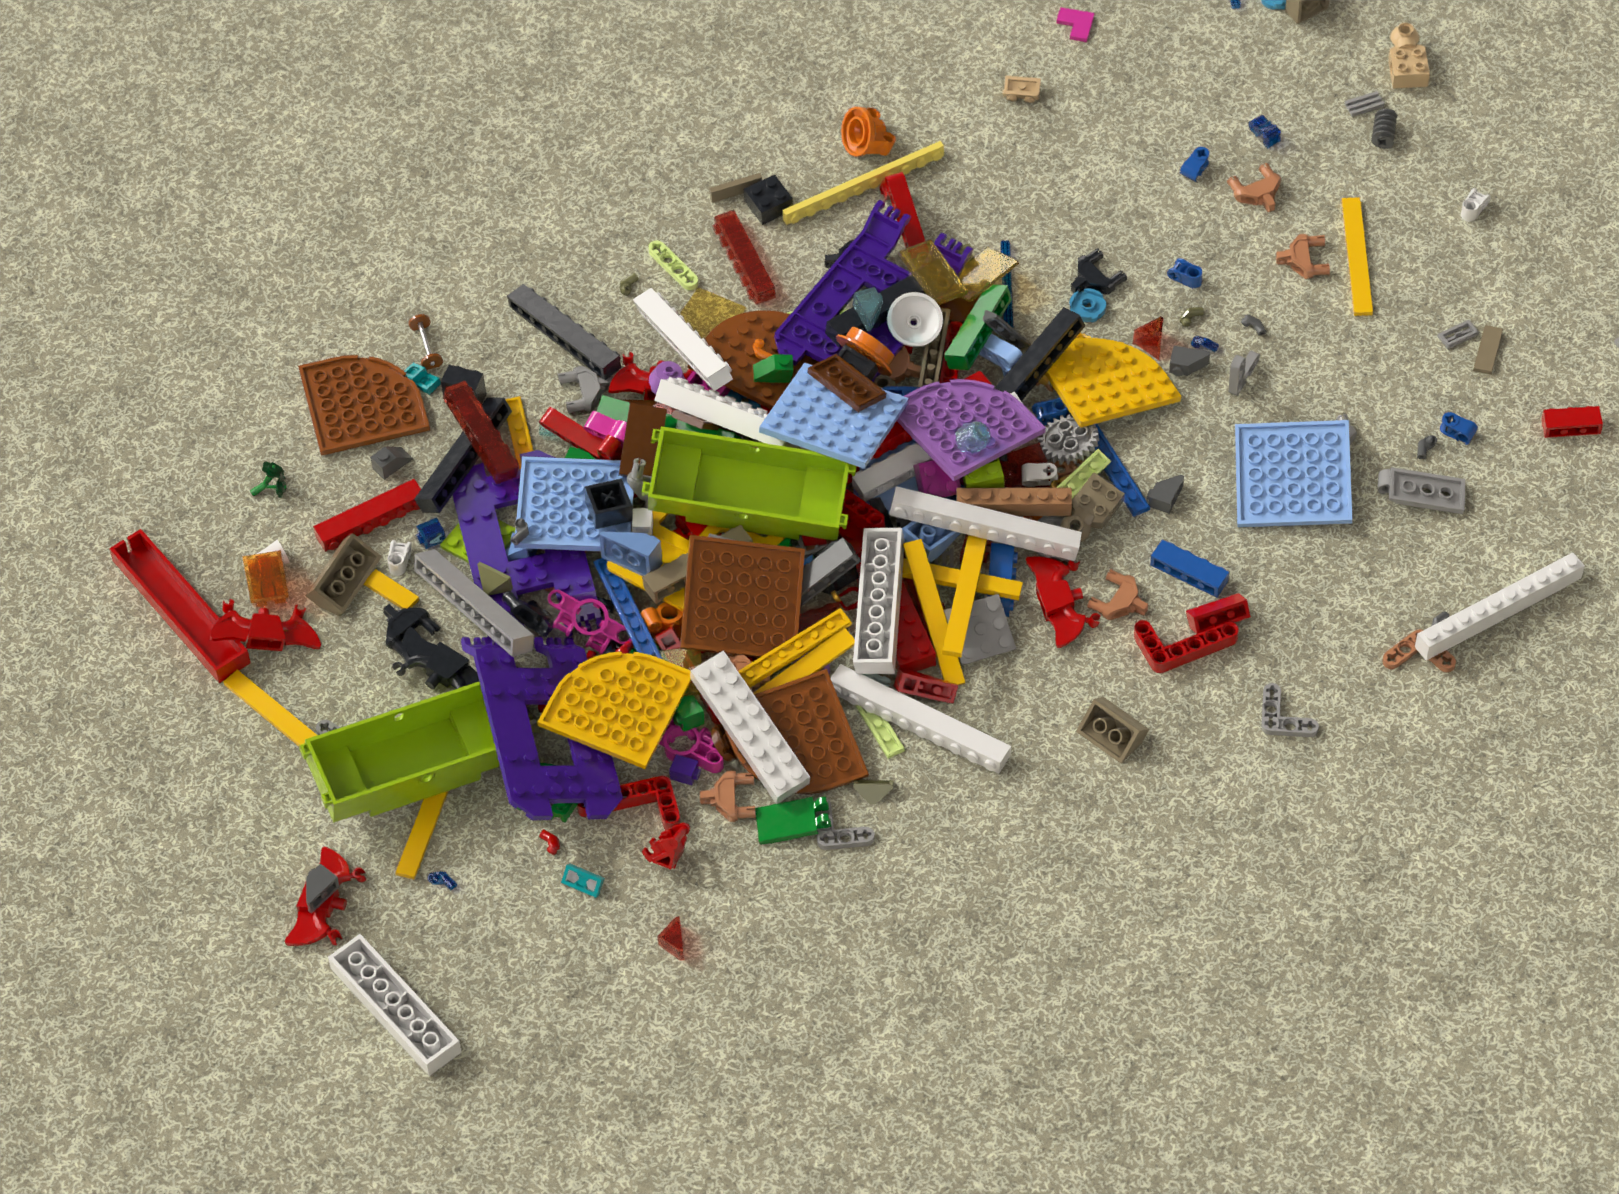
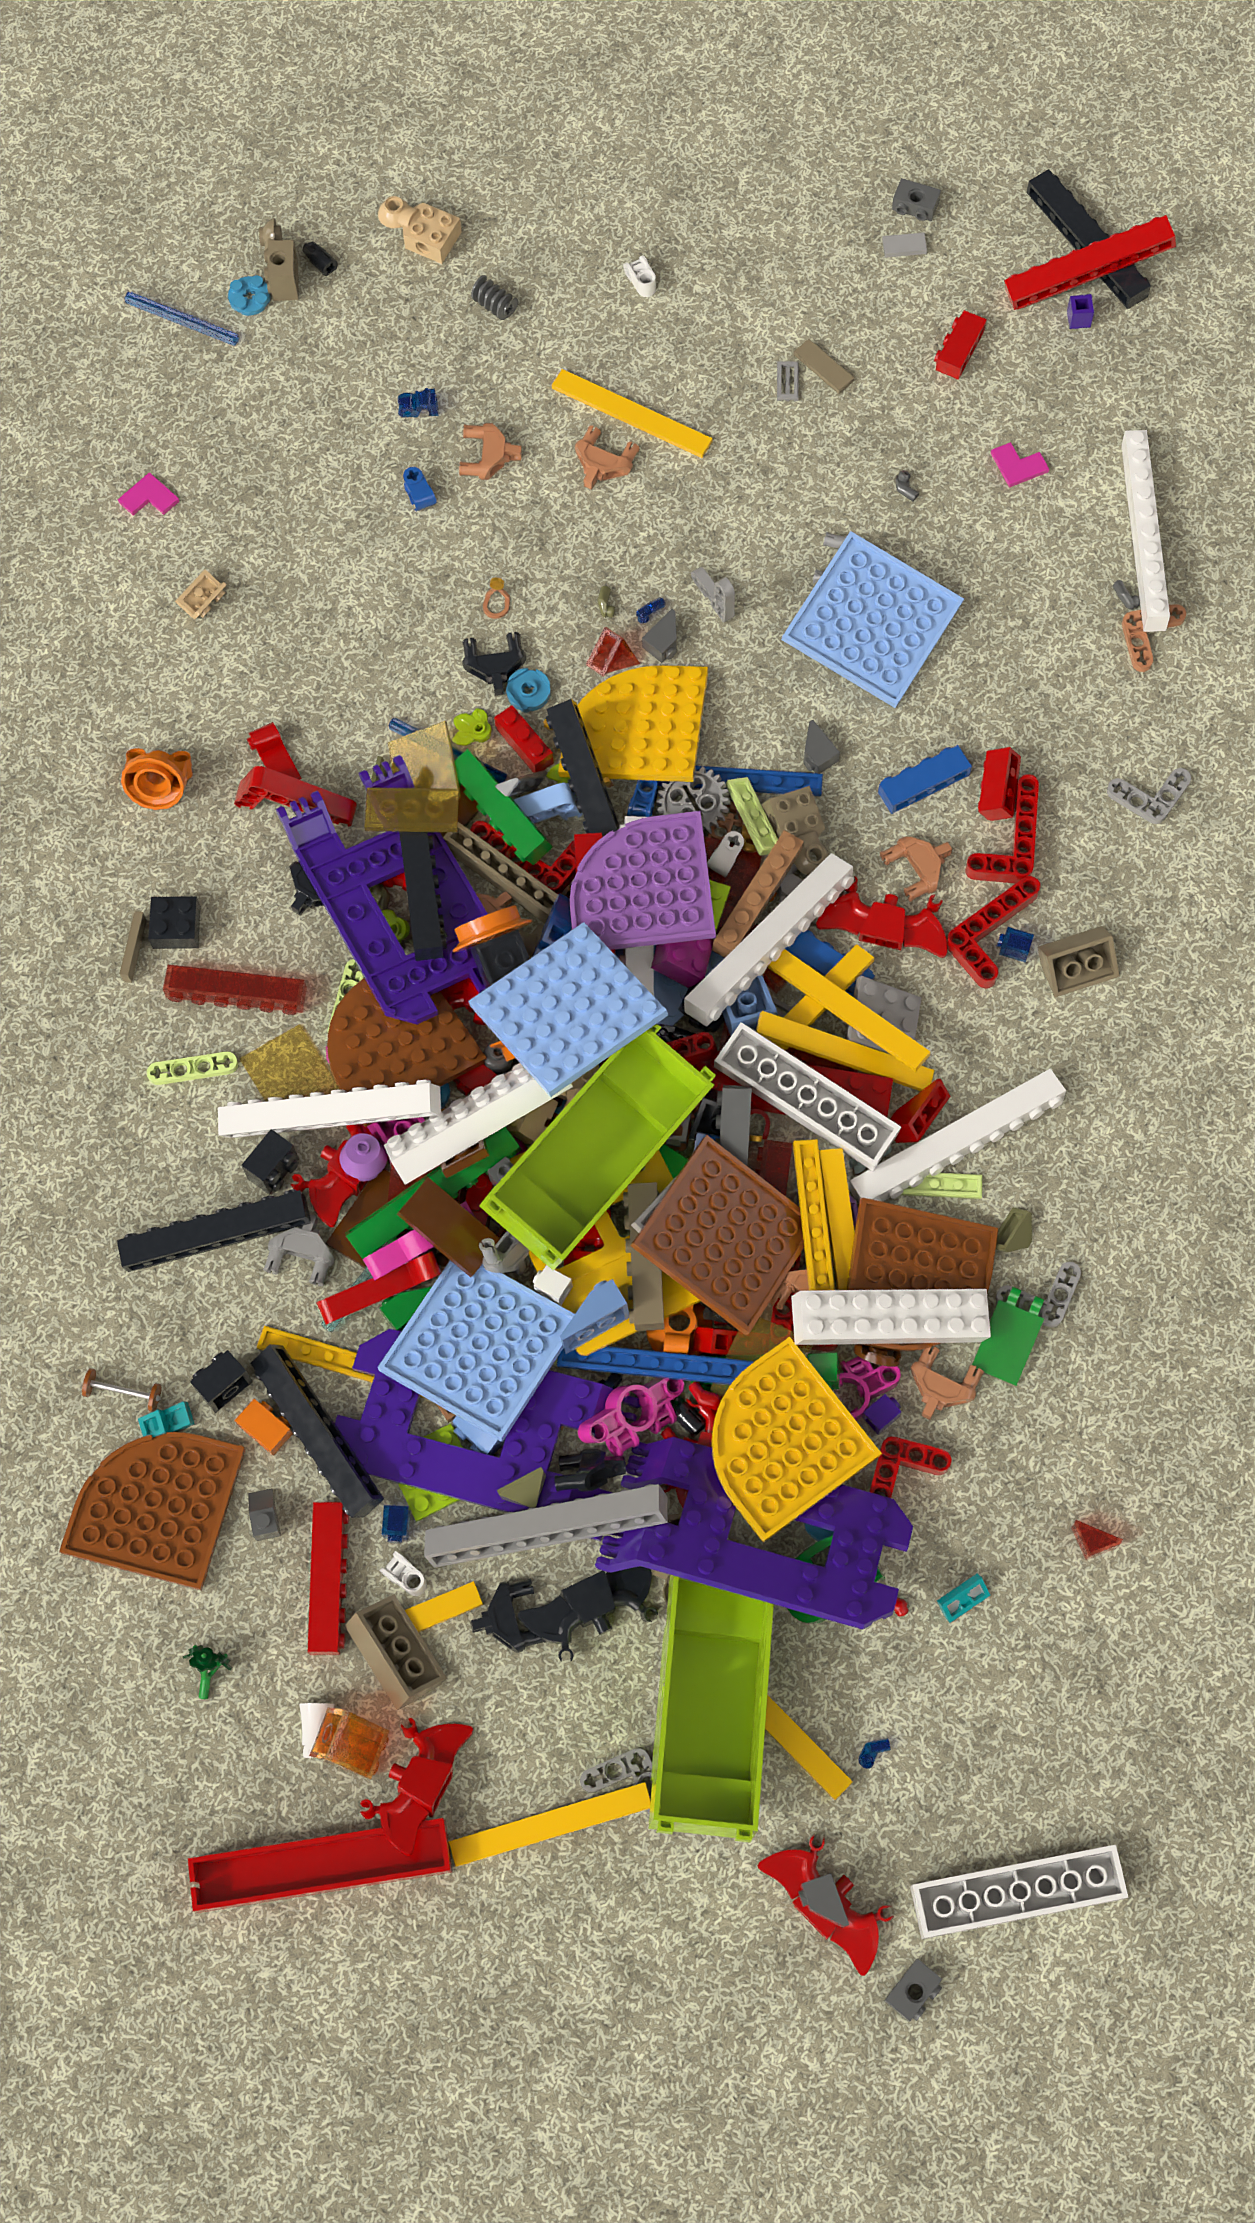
camera: 60 degrees left, 15 degrees up
(285, 969) = (923, 1977): none -> dark grey brick
(447, 430) = (264, 1426): none -> orange brick
(481, 432) = (311, 1394): clear red brick -> none
(522, 531) = (494, 1422): dark grey arm -> none
(608, 503) = (516, 1308): black brick -> none
(625, 284) = (183, 1131): olive arm -> none
(632, 335) = (271, 1162): none -> black brick
(668, 847) = (979, 1484): red piece -> none
(759, 349) = (398, 1040): orange arm -> none
(774, 369) = (431, 1038): green slope -> none
(846, 382) = (532, 971): reddish brown tile -> none
(864, 182) = (218, 825): light yellow plate -> none
(868, 306) = (426, 897): clear light blue slope -> none
(919, 308) = (470, 852): white dish -> none
(937, 185) = (272, 750): none -> red door
(972, 437) = (678, 886): clear light blue hair -> none
(1035, 289) = (468, 727): none -> lime plate
(1046, 312) = (523, 740): none -> red brick
(1097, 684) = (1015, 944): none -> clear blue brick
(1100, 660) = (987, 925): none -> red beam
(1152, 244) = (496, 584): none -> nougat piece
(1186, 273) = (549, 577): blue piece -> none
(1255, 322) = (654, 549): dark grey arm -> none
(1338, 17) = (320, 258): none -> black hinge
(1362, 101) = (447, 284): light grey tile -> none
(1407, 485) = (951, 527): light grey hinge -> none
(1459, 428) = (904, 445): blue piece -> none
(1495, 509) = (1016, 469): none -> dark pink tile

